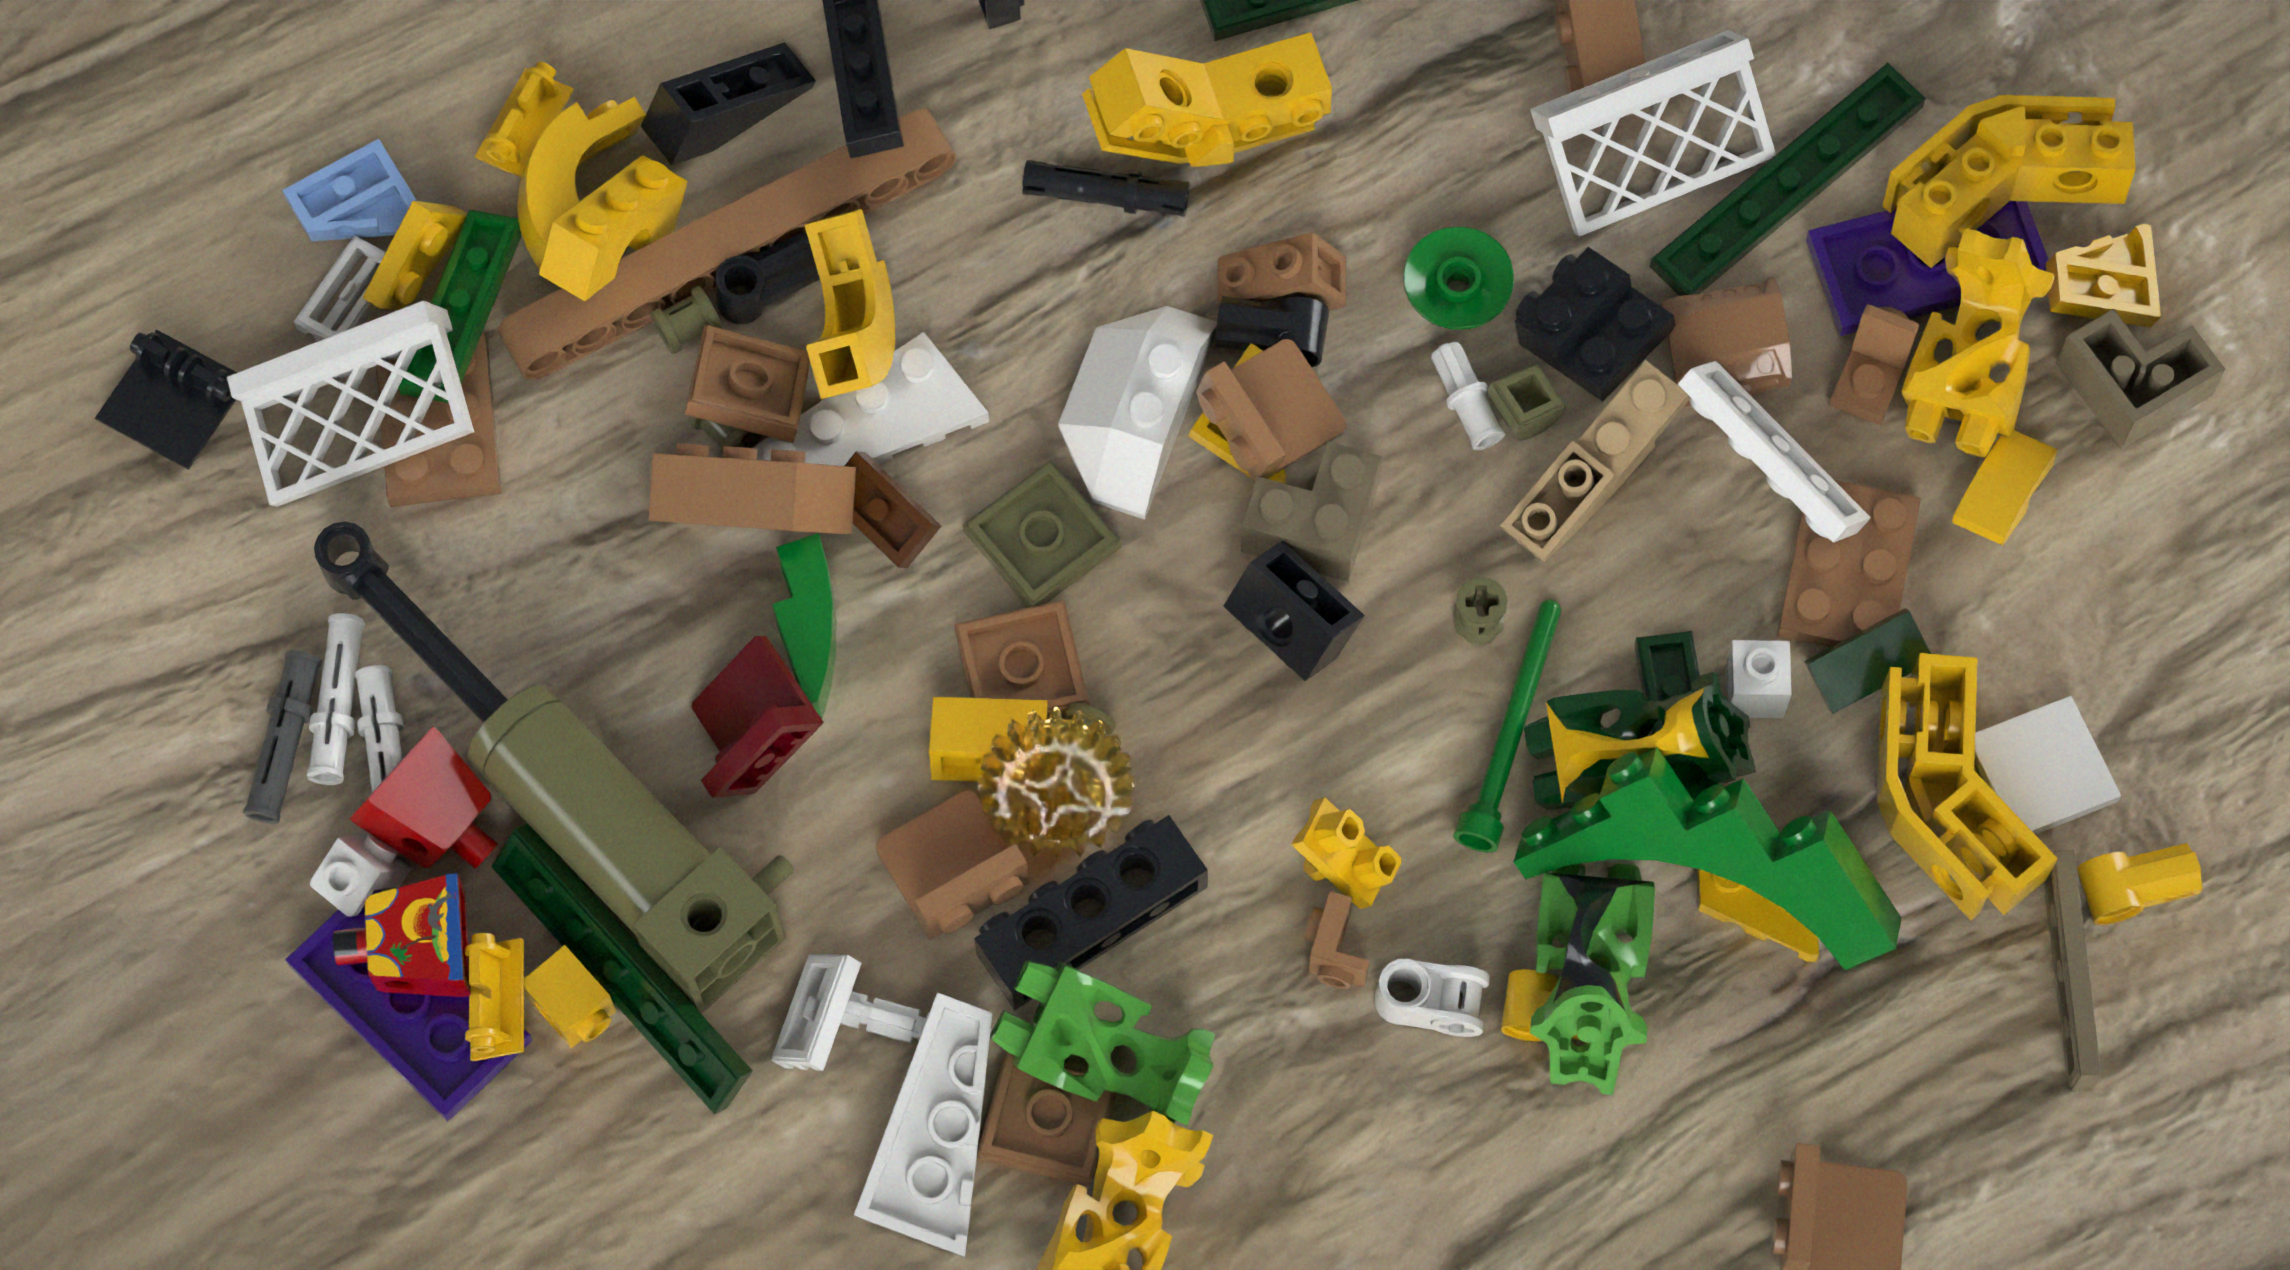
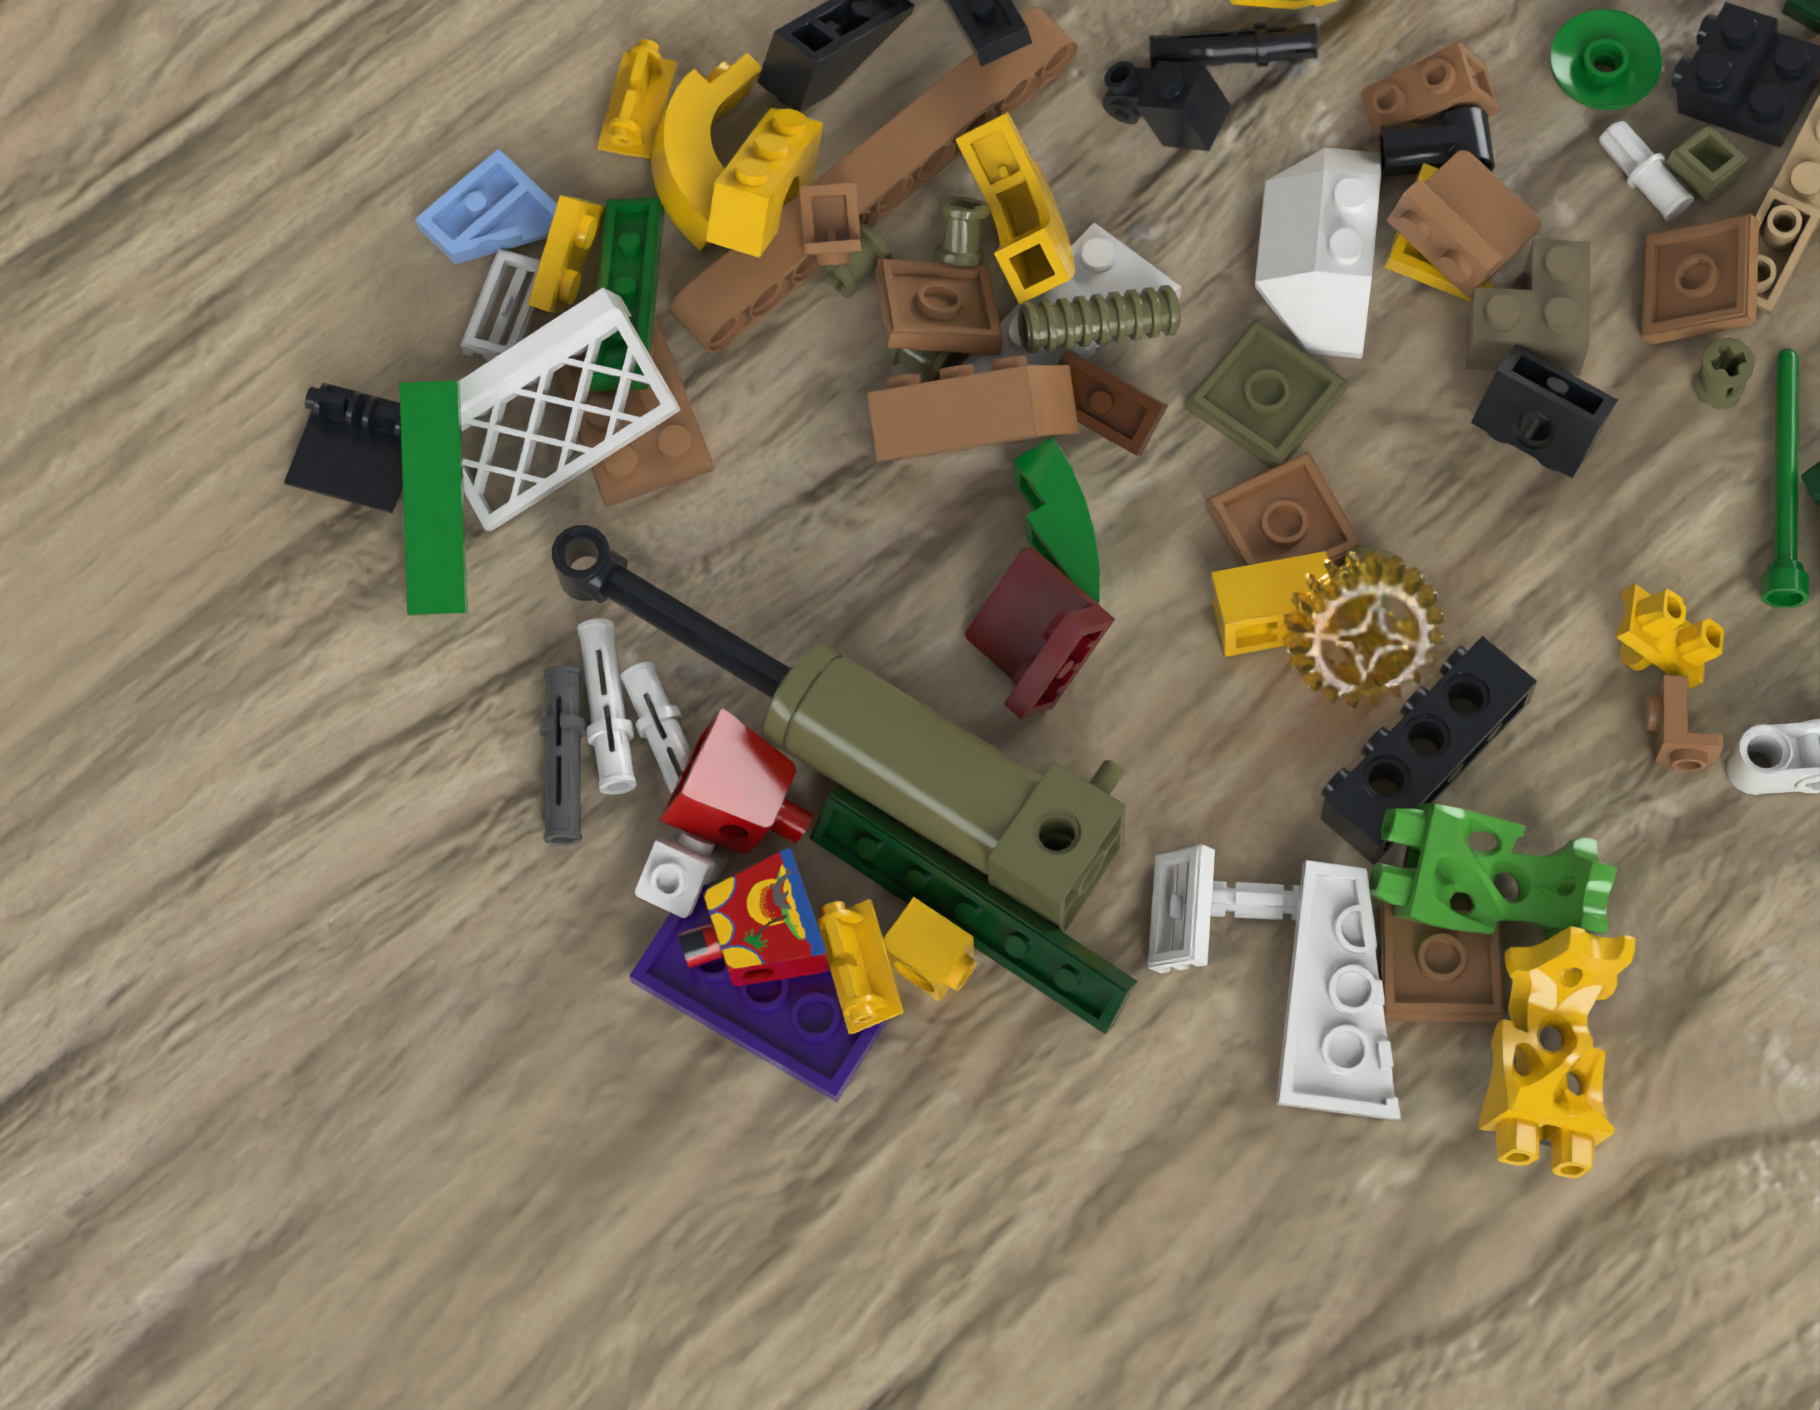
camera: 10 degrees left, 0 degrees up
(224, 465) = (433, 498): none -> green tile
(663, 281) = (830, 222): none -> medium nougat bracket
(770, 275) = (920, 202): black piece -> none
(792, 314) = (961, 231): none -> olive bush
(895, 428) = (1098, 319): none -> olive piece
(952, 864) = (1275, 733): medium nougat bracket -> none
(1027, 228) = (1174, 99): none -> black brick
(1482, 514) = (1700, 279): none -> medium nougat tile

